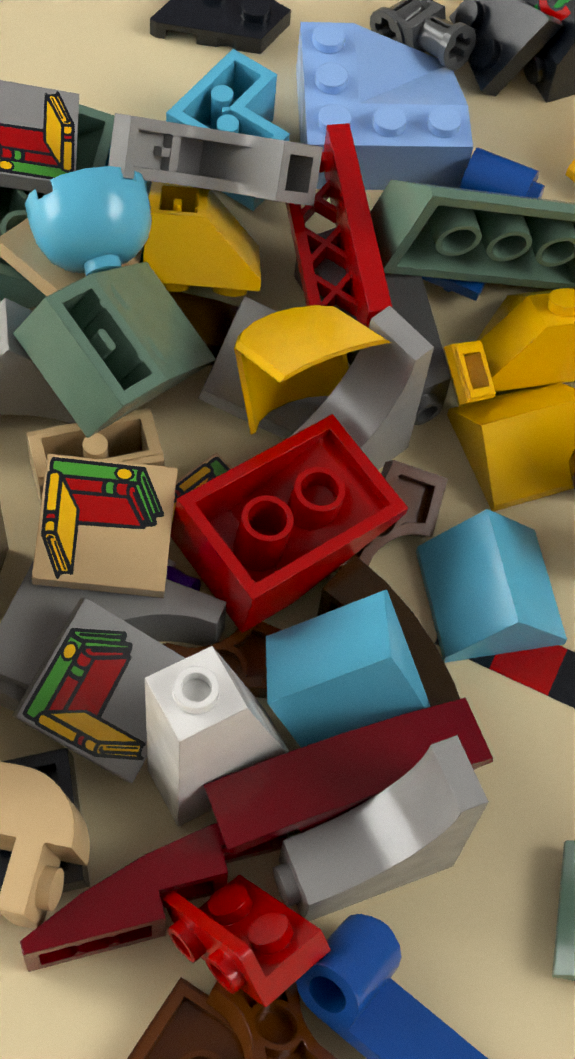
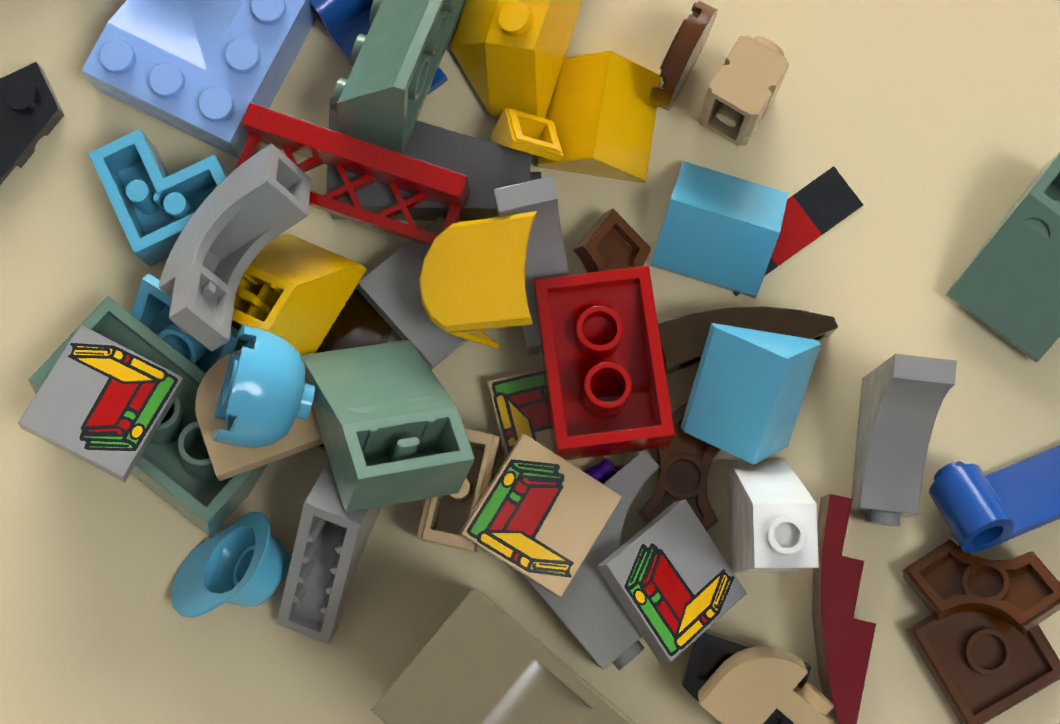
camera: 50 degrees left, 20 degrees up
(246, 939) = (918, 568): red bracket -> none
(335, 774) = (841, 426): dark red slope -> none

